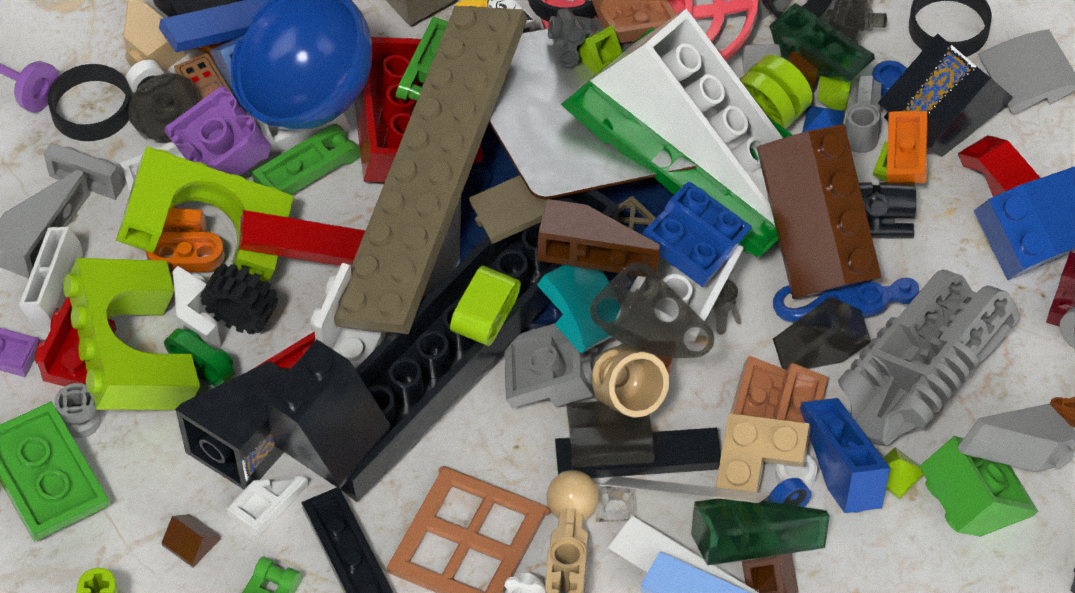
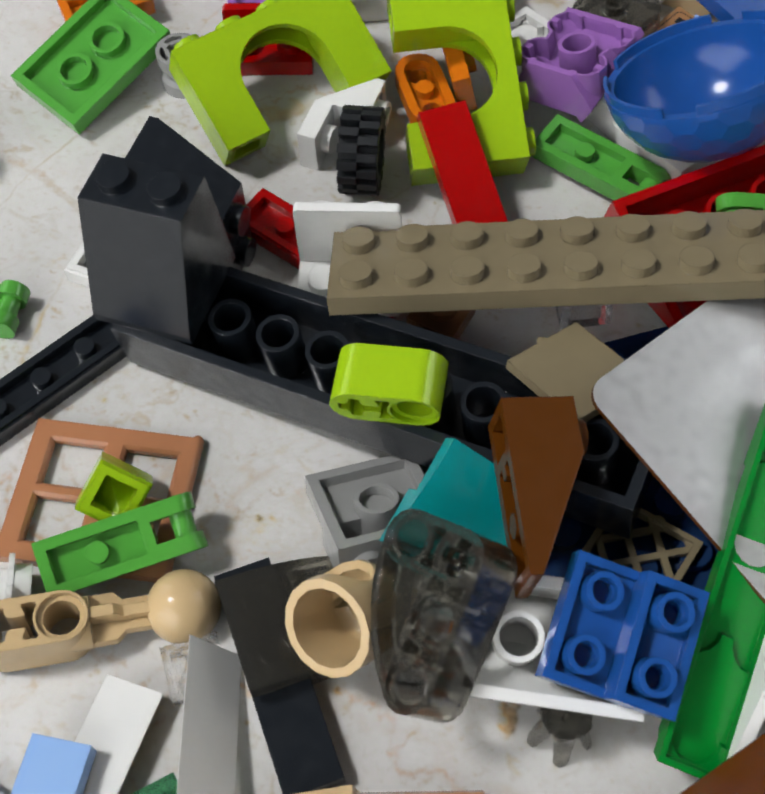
camera: 75 degrees right, 5 degrees up
(189, 539) = (49, 215): reddish brown slope -> none
(210, 364) = (279, 147): green plate -> none
(474, 519) = (113, 488): none -> lime slope
(521, 518) = (117, 545): none -> bright green plate

